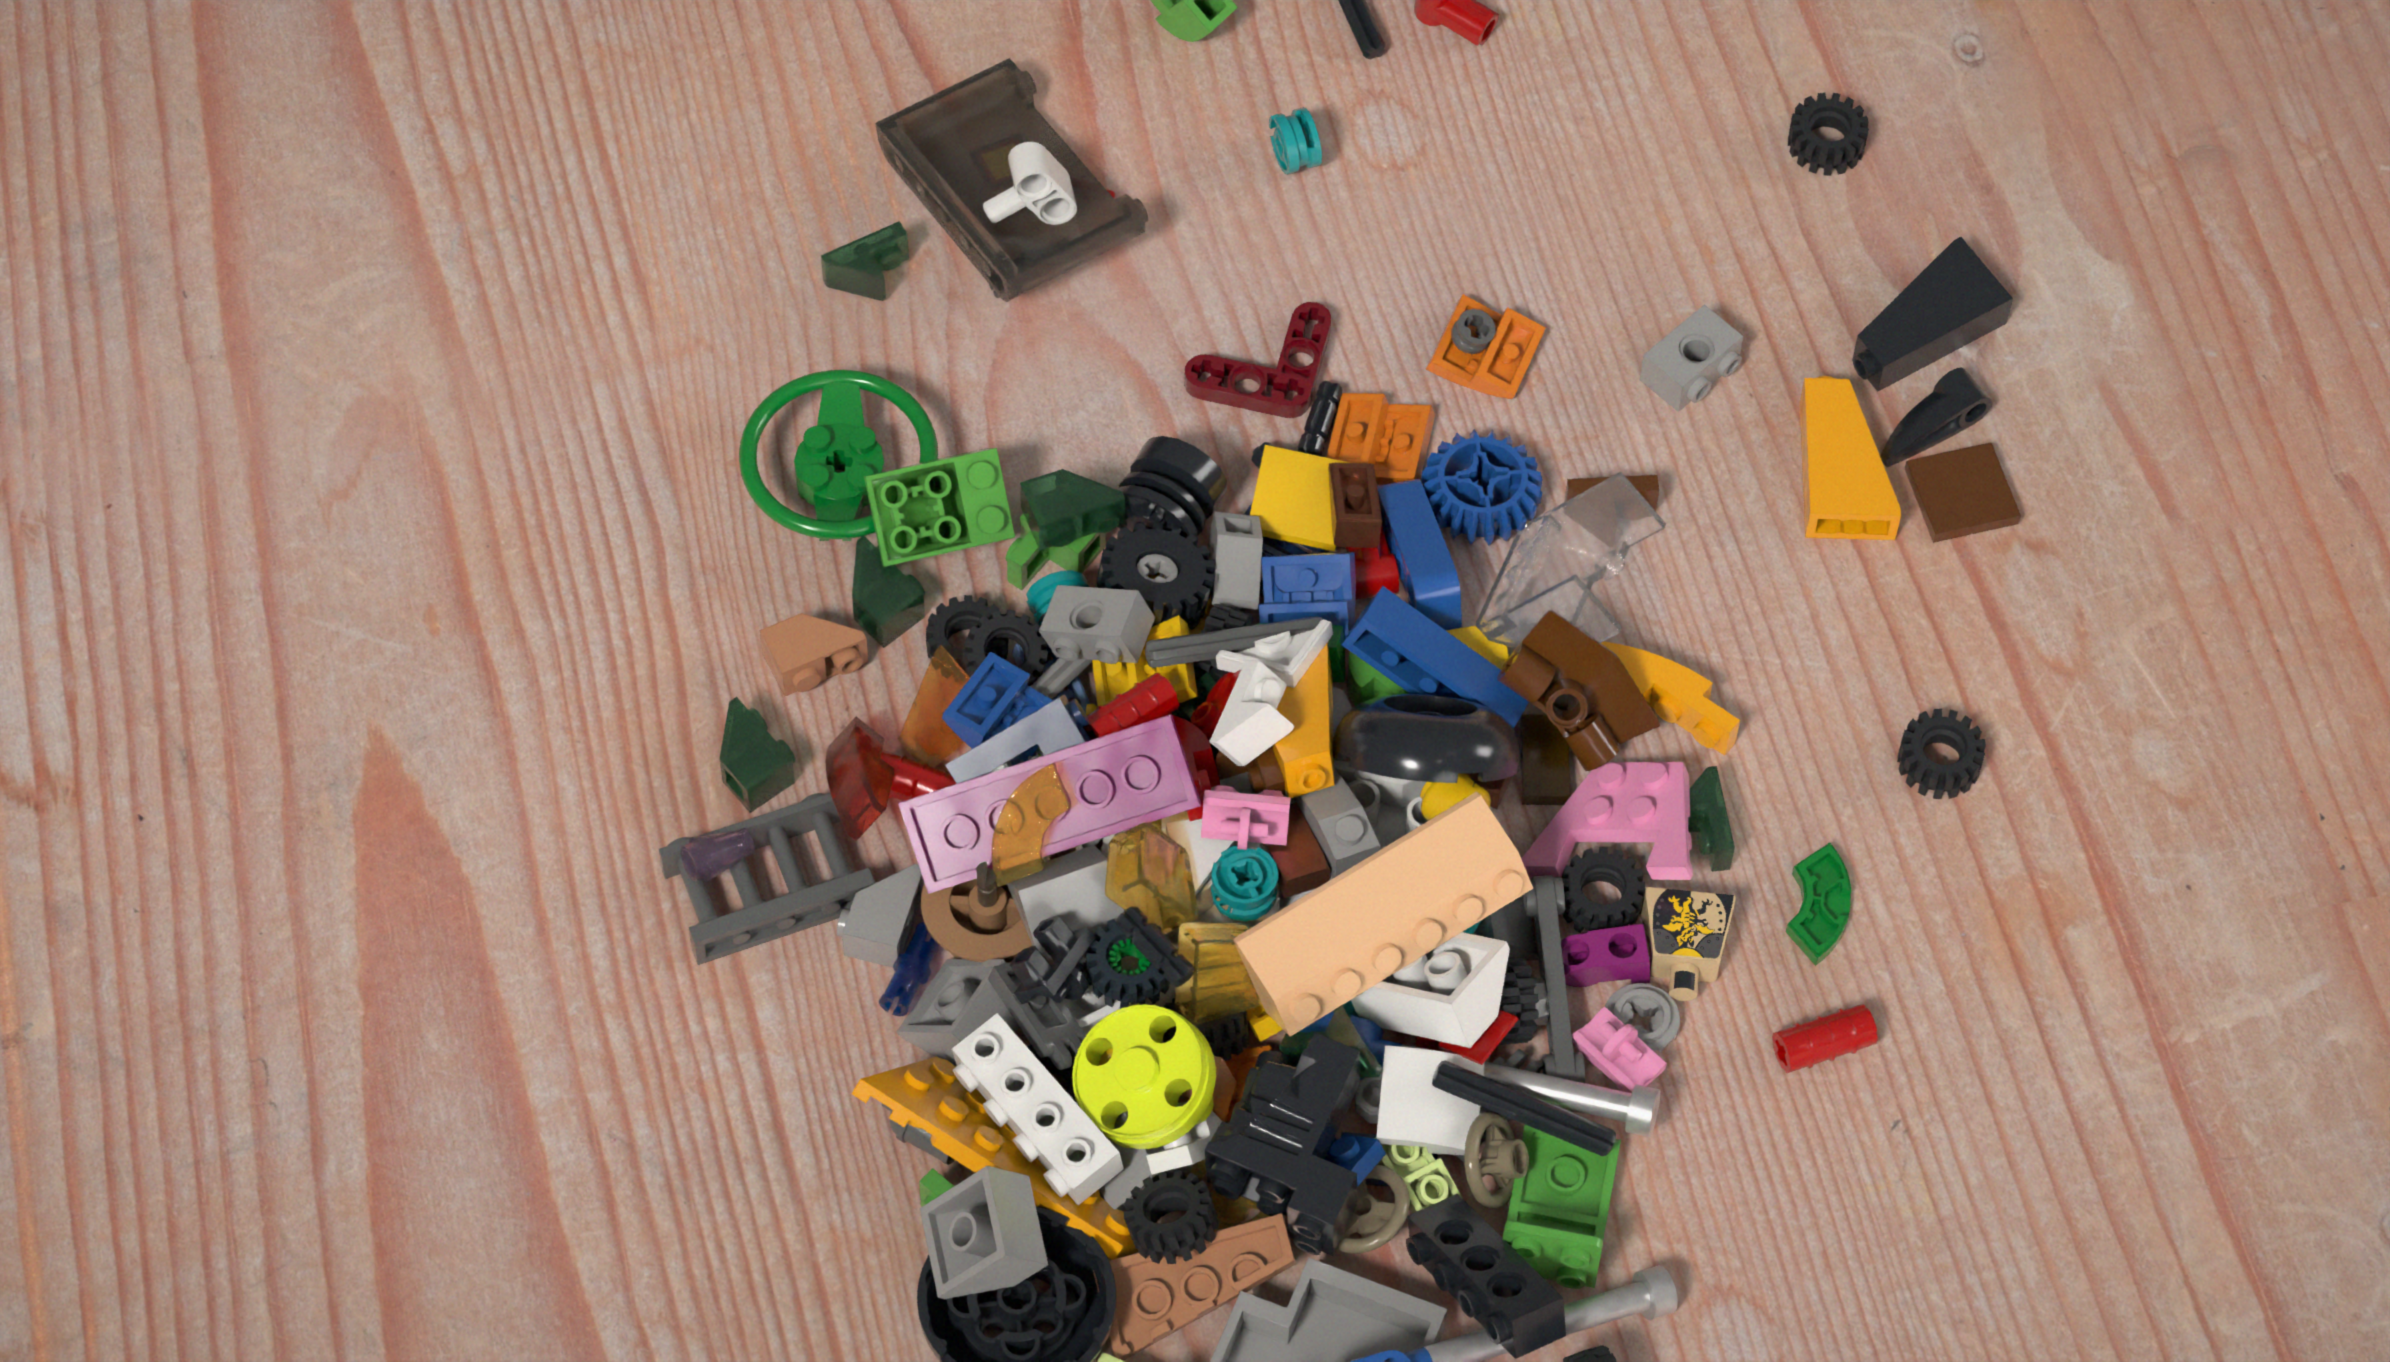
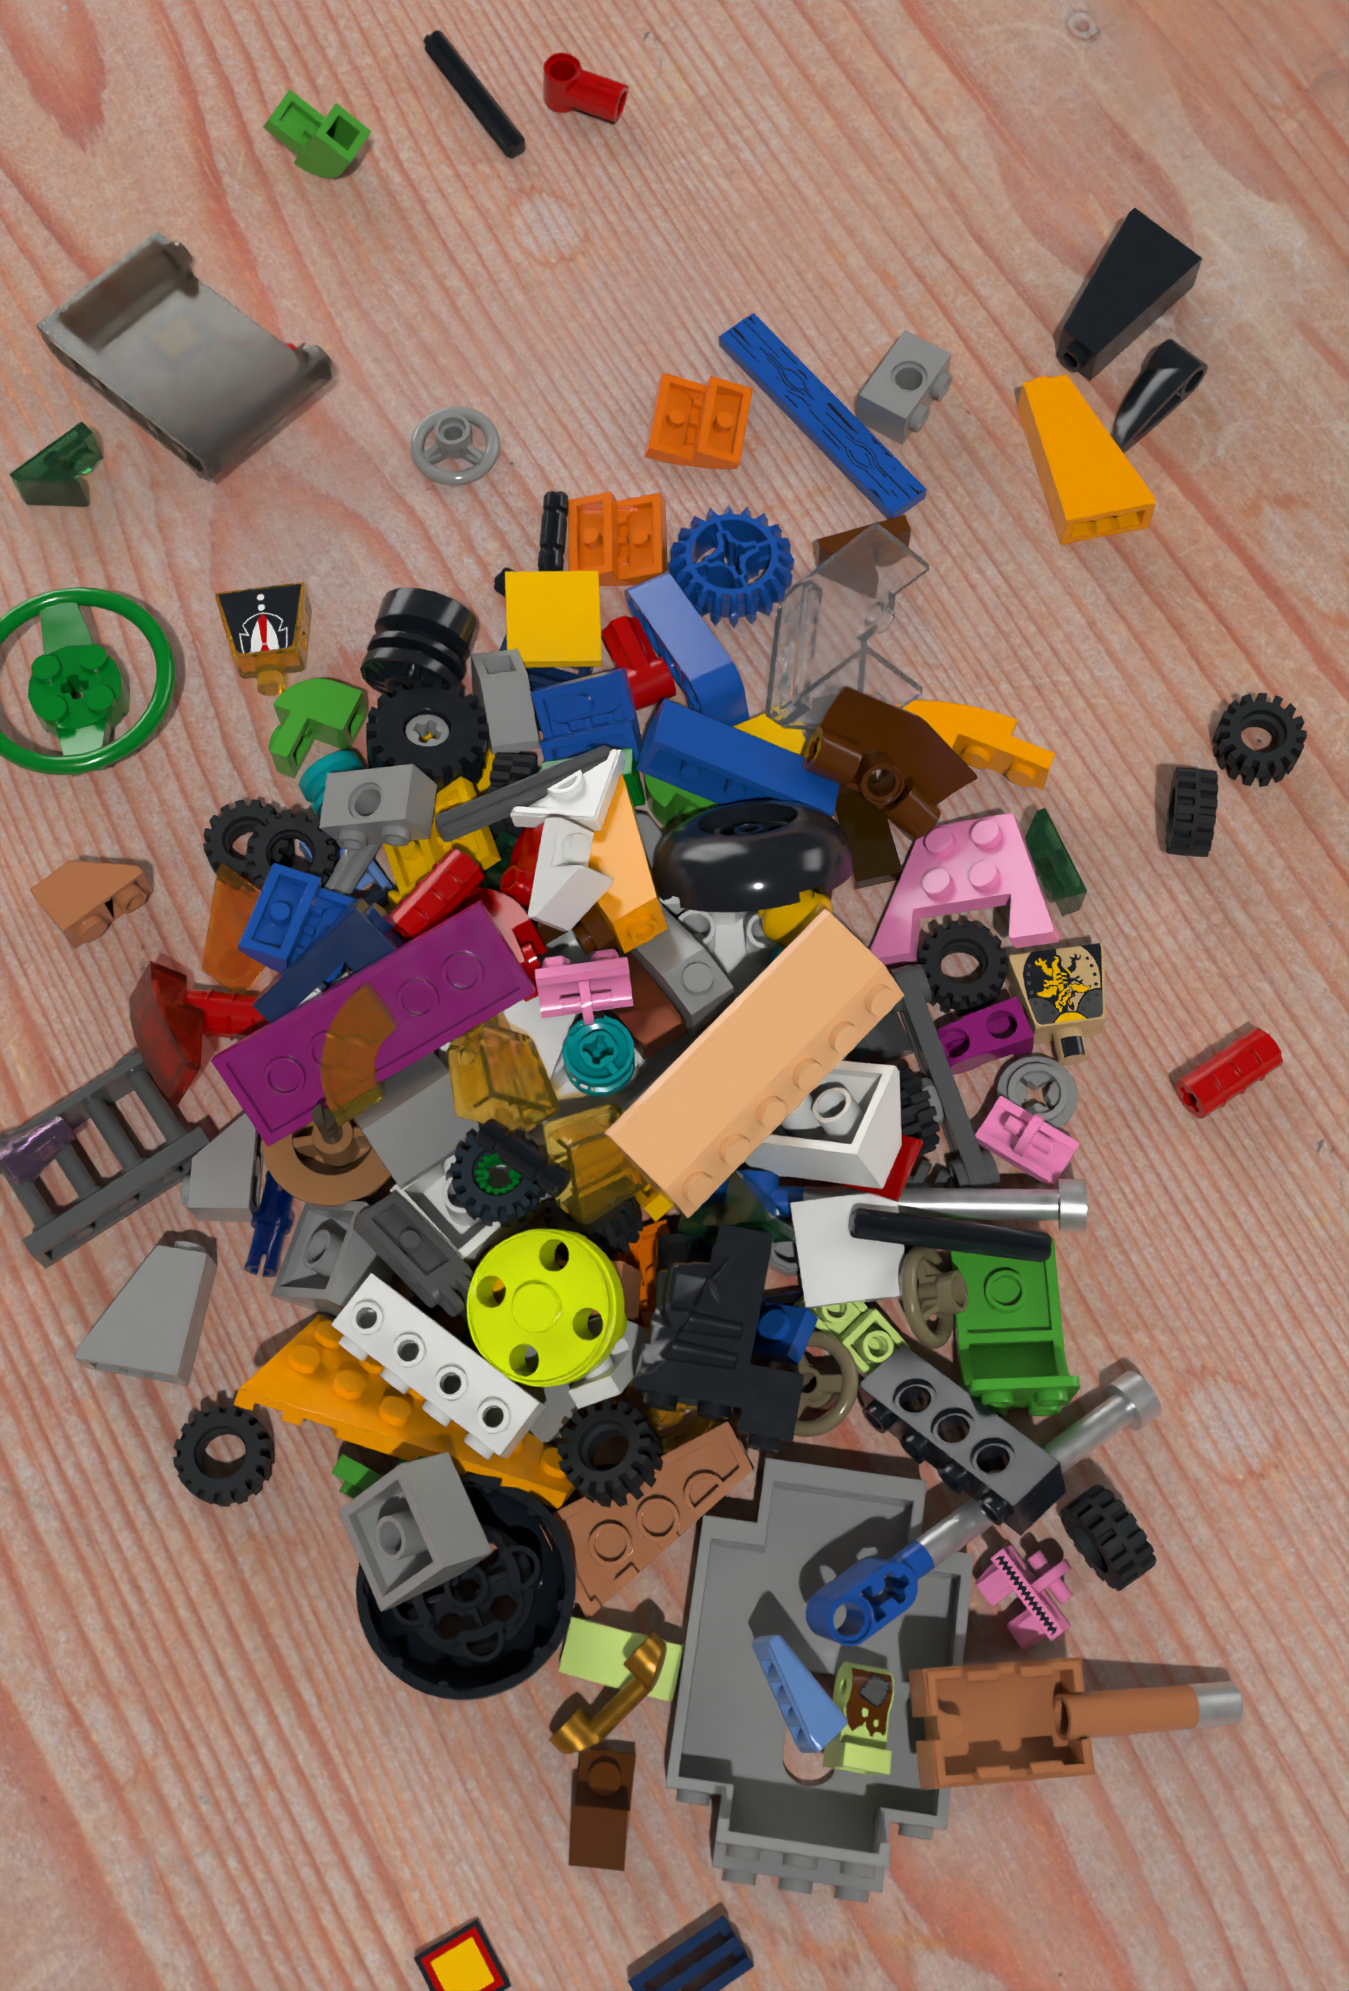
camera: 10 degrees left, 10 degrees up
(751, 759) = (51, 1030): clear green slope -> none
(788, 1024) = (155, 1318): none -> light grey slope
(830, 1178) = (197, 1438): none -> black tyre
(883, 597) = (151, 820): clear green slope -> none
(939, 506) = (185, 714): bright green slope -> none
(1029, 444) = (267, 632): none -> torso
(1038, 185) = (212, 353): white beam -> none
(1056, 970) = (424, 1204): black hips -> none
(1069, 507) = (320, 684): clear green slope -> none
(1246, 315) = (454, 441): none -> light grey piece
(1283, 378) = (506, 498): dark red beam -> none
(1295, 140) = (460, 253): teal wheel -> none
(1354, 505) = (611, 615): copper slope -> none
(1484, 329) = (693, 402): dark grey bush -> none
(1606, 368) = (822, 417): none -> blue tile
(1824, 905) = (1185, 925): green tile -> none
(1830, 114) = (978, 116): black tyre -> none
(1853, 801) = (1191, 812): none -> black tyre
(1962, 492) = (1201, 464): reddish brown tile -> none

